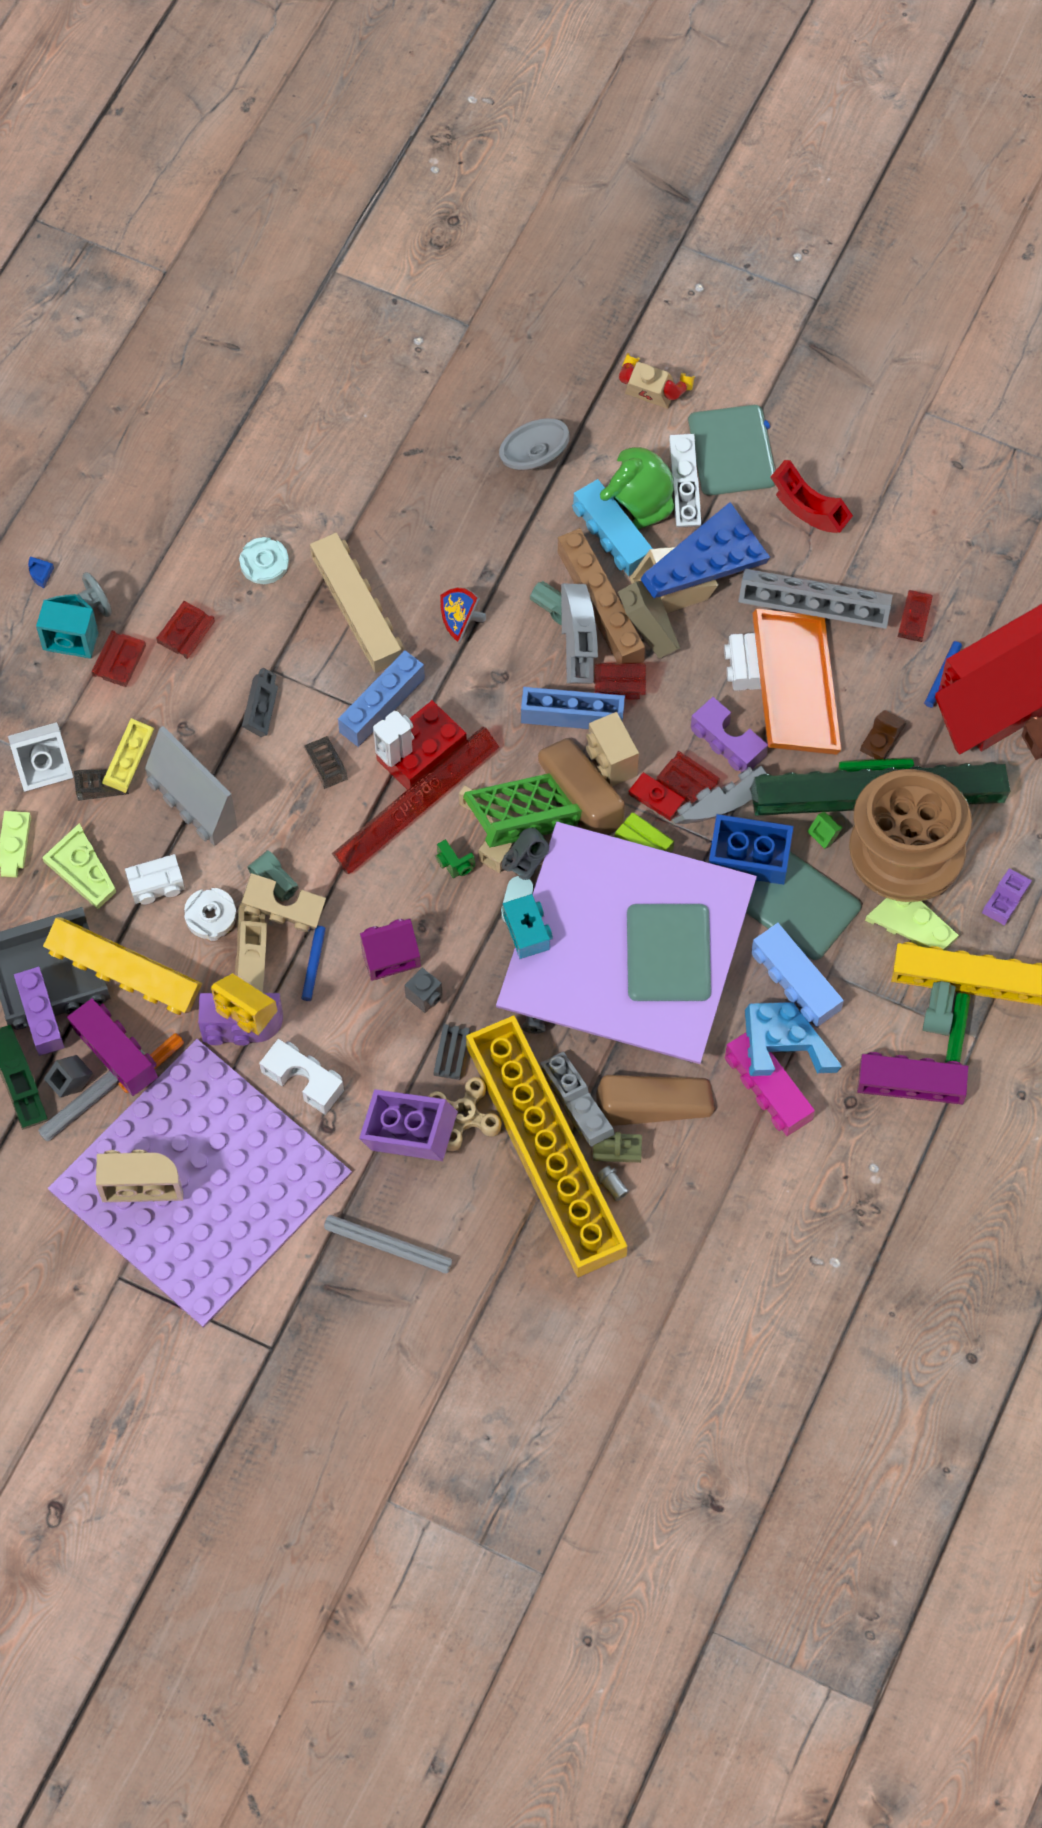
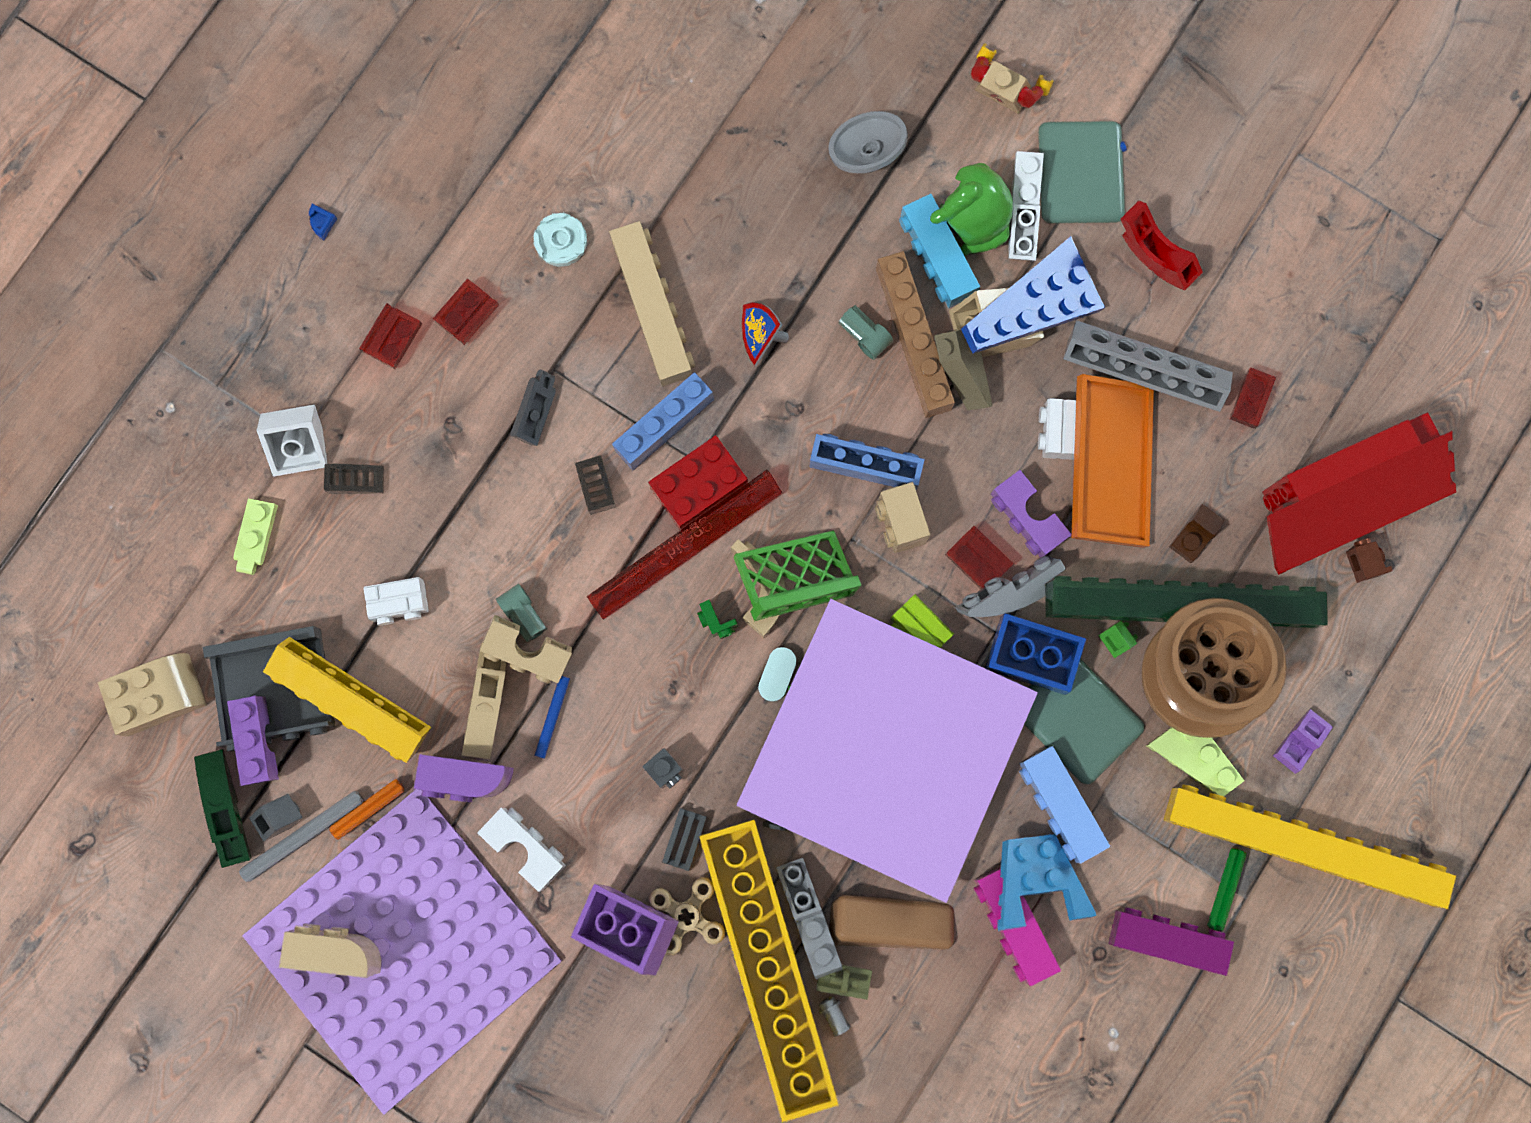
camera: 10 degrees right, 15 degrees up
(68, 621) = (339, 288): teal piece -> none
(80, 867) = (320, 574): yellowish green wing -> none
(113, 1047) = (325, 792): magenta brick -> none
(128, 755) = (386, 451): light yellow tile -> none
(190, 788) = (443, 506): light grey slope -> none
(208, 900) = (434, 646): white plate -> none
(243, 1003) = (461, 781): yellow slope -> none
(388, 1244) = (588, 1050): light grey axle -> none
(390, 949) = (632, 719): magenta slope -> none
(393, 738) = (666, 484): white brick -> none
(517, 916) = (770, 709): teal brick -> none
(525, 854) = (793, 630): dark grey piece -> none
(580, 632) = (887, 373): light grey slope -> none
(583, 785) = (865, 552): medium nougat piece -> none
(621, 679) = (922, 433): clear red brick -> none
(656, 796) = (942, 572): red plate -> none
(668, 952) = (930, 769): sand green piece -> none
(880, 764) = (1184, 570): green axle -> none
(930, 700) = (1272, 469): blue bar -> none
(938, 1015) = (1209, 872): sand green piece -> none

